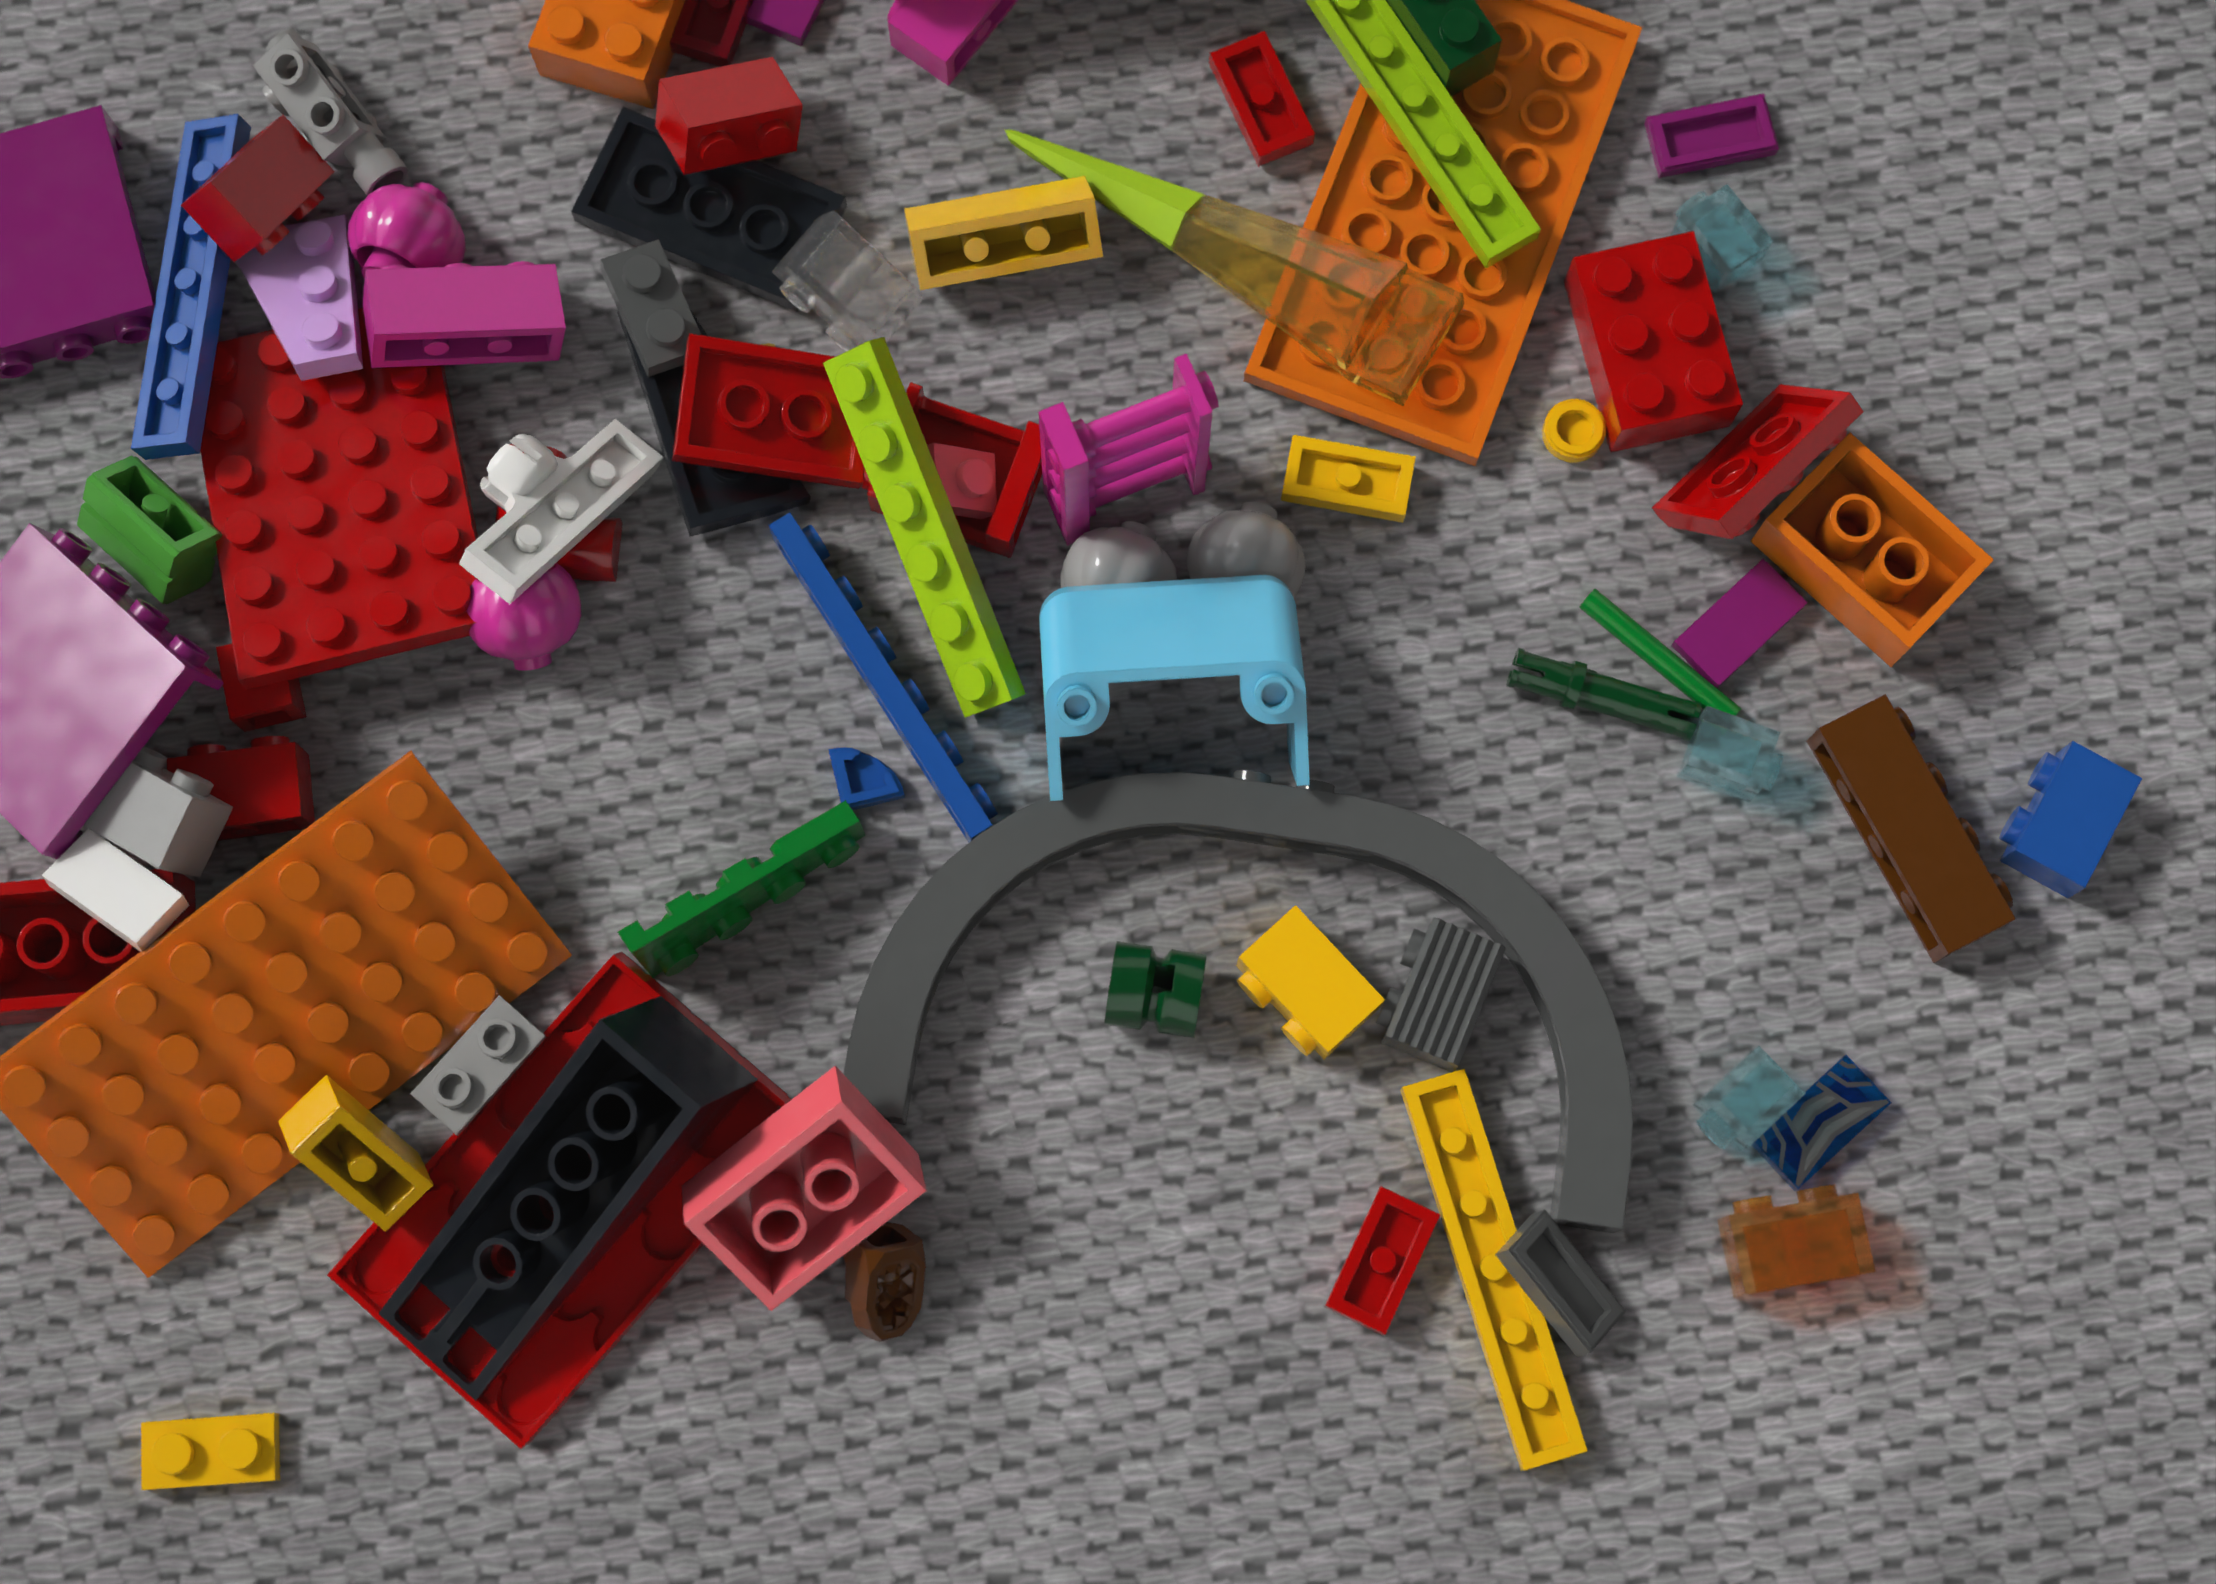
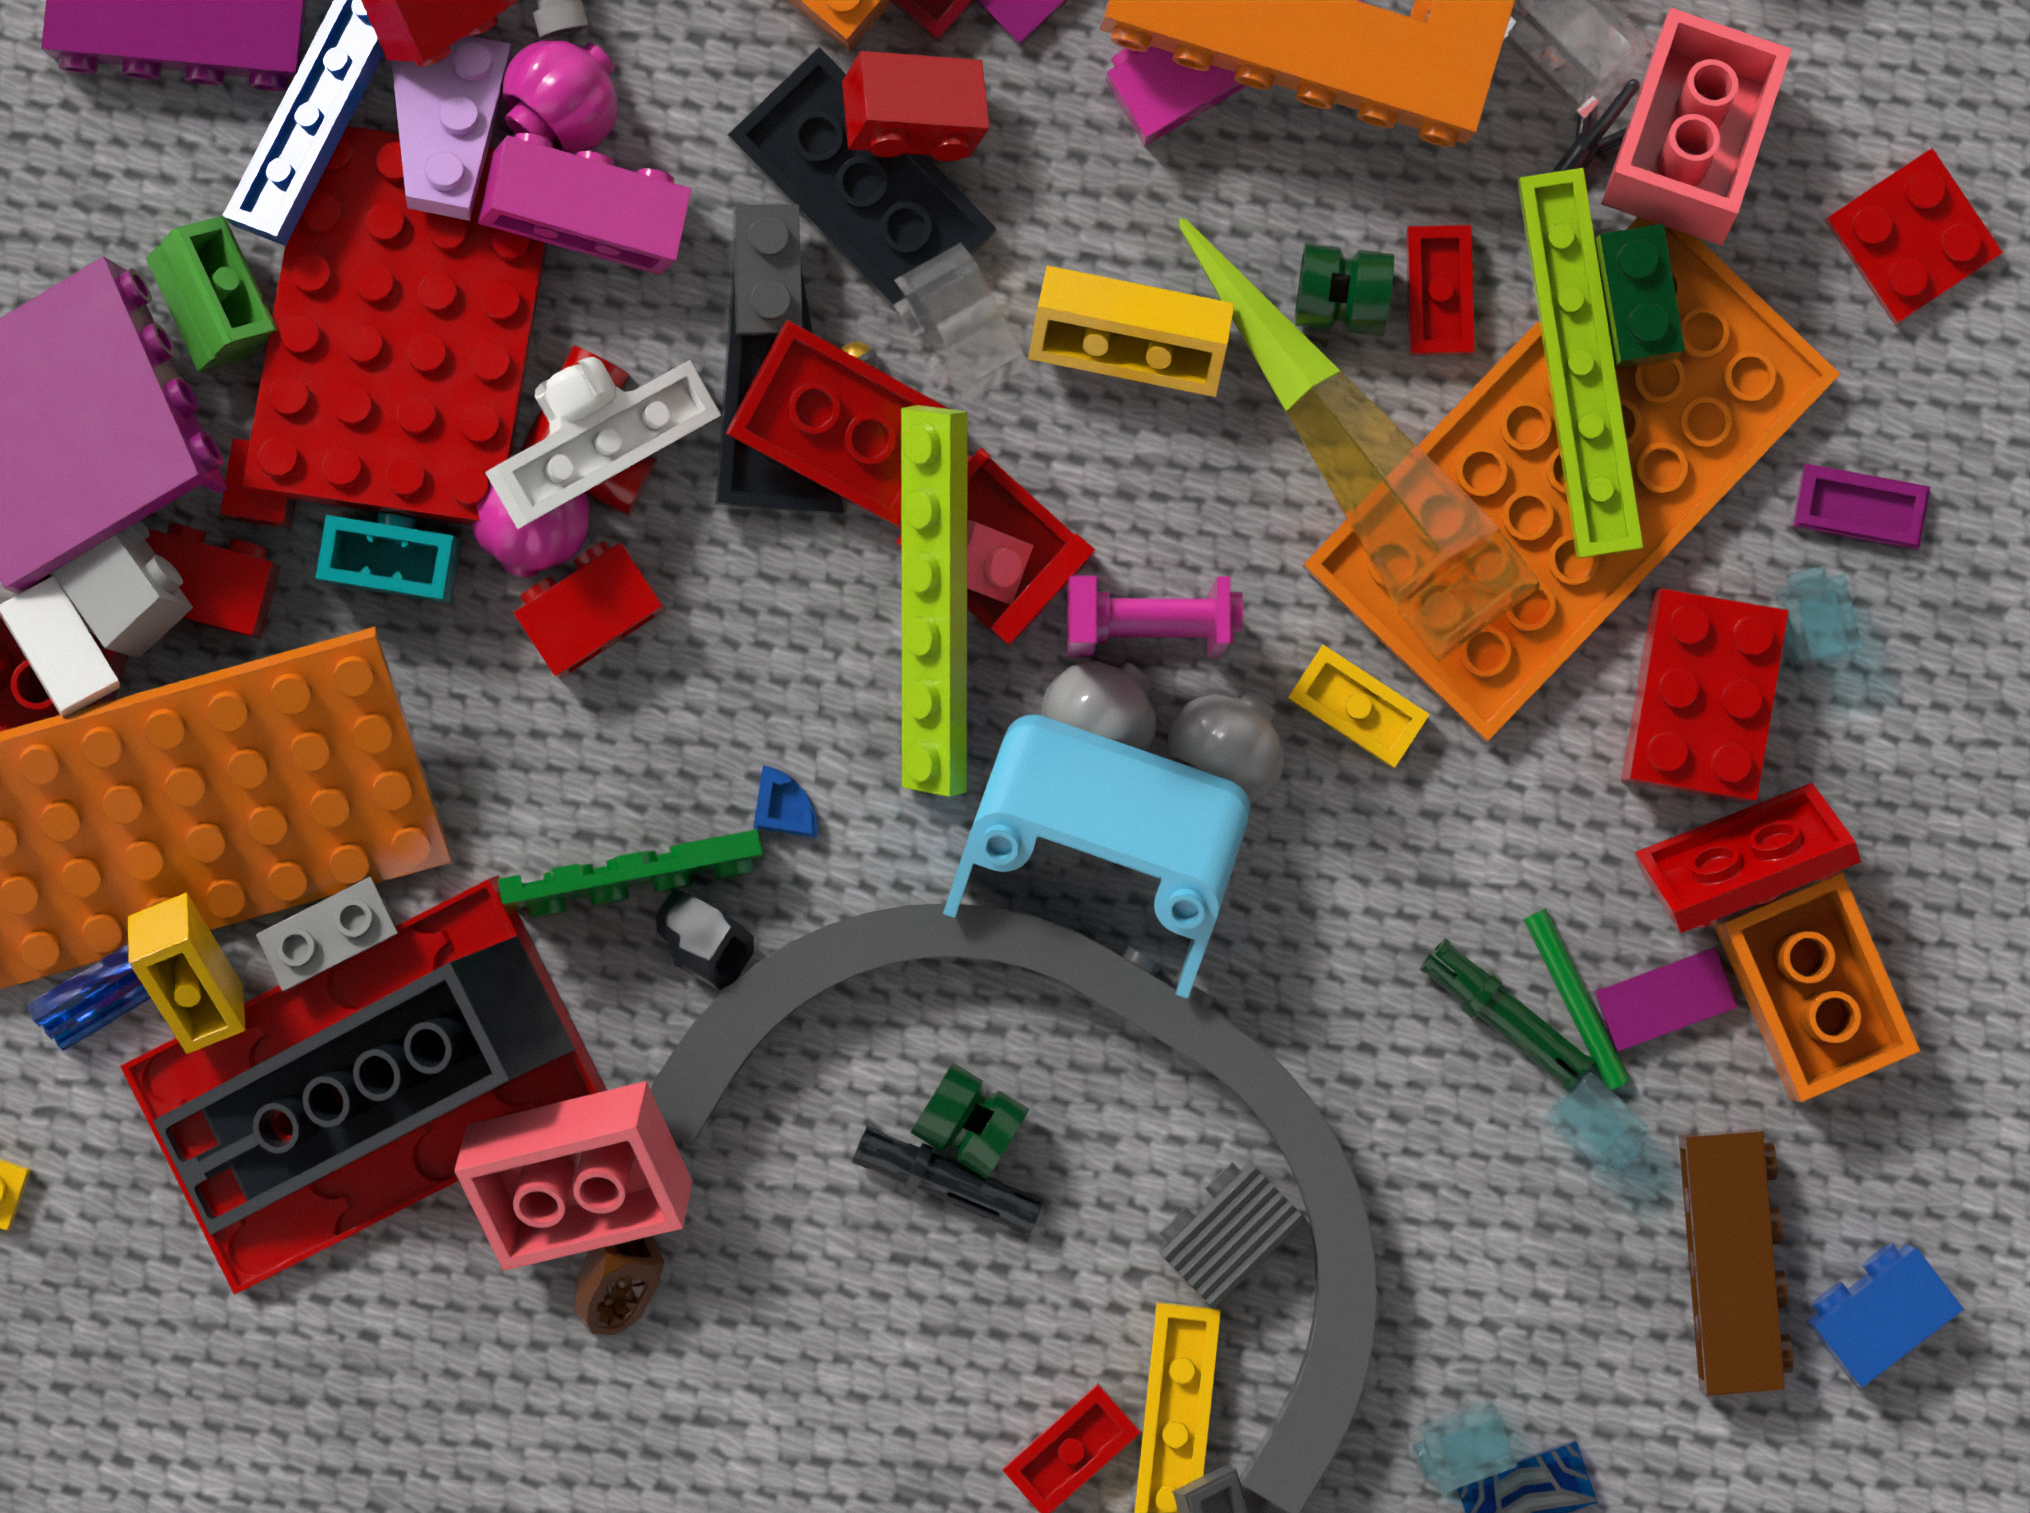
camera: 25 degrees right, 10 degrees up
(288, 1225) = (89, 1000): none -> clear blue tile
(404, 698) = (389, 558): none -> teal brick
(609, 671) = (588, 608): none -> red brick
(837, 923) = (703, 939): none -> black rock
(870, 655) = (837, 694): blue plate -> none
(1143, 1056) = (947, 1180): none -> black pin
(1198, 121) = (1366, 289): none -> dark green wheel
(1307, 984) = (1112, 1174): yellow brick -> none
(1574, 430) = (1594, 746): yellow tile -> none

